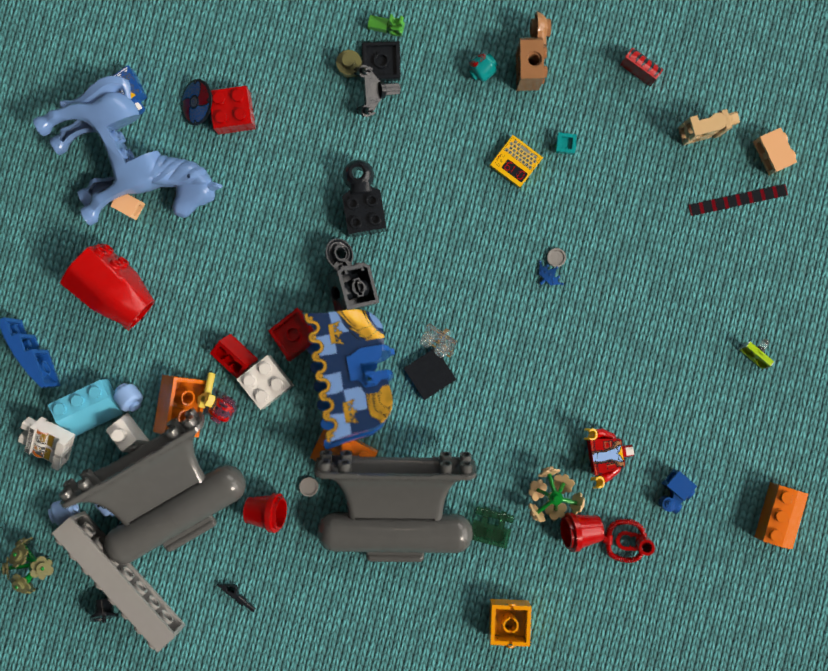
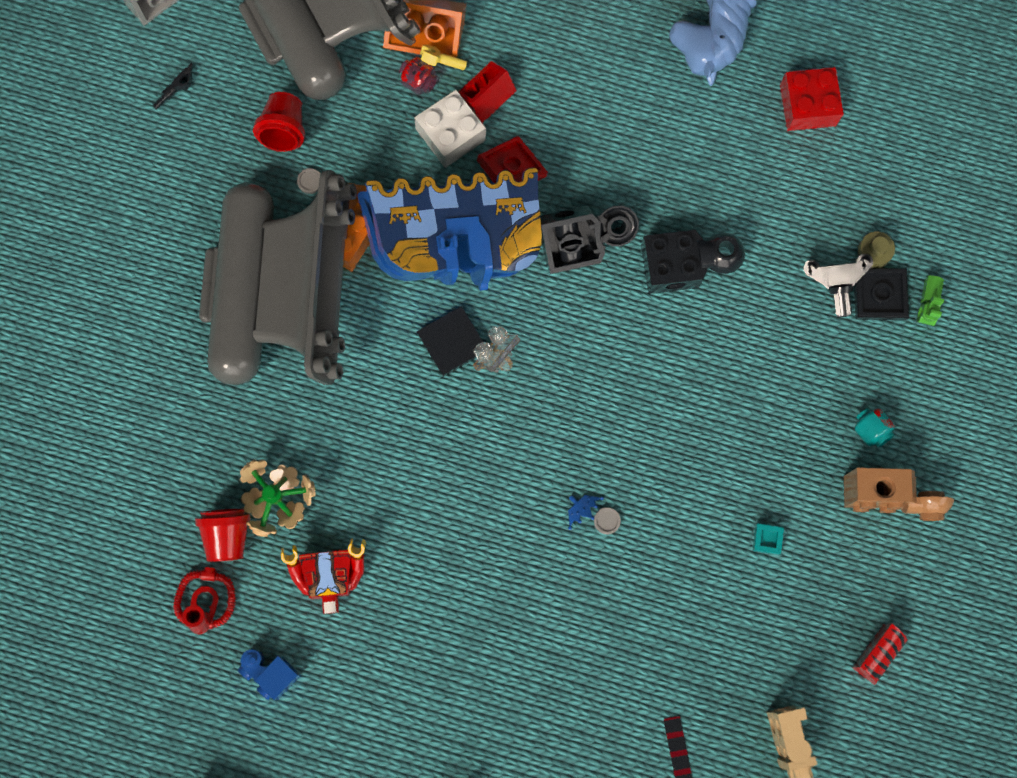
camera: 85 degrees right, 10 degrees down
(196, 102) = (821, 55): shield -> none
(491, 533) = (230, 411): clear green plate -> none
(509, 622) = (106, 429): light orange brick -> none
(516, 161) = (742, 470): tile -> none

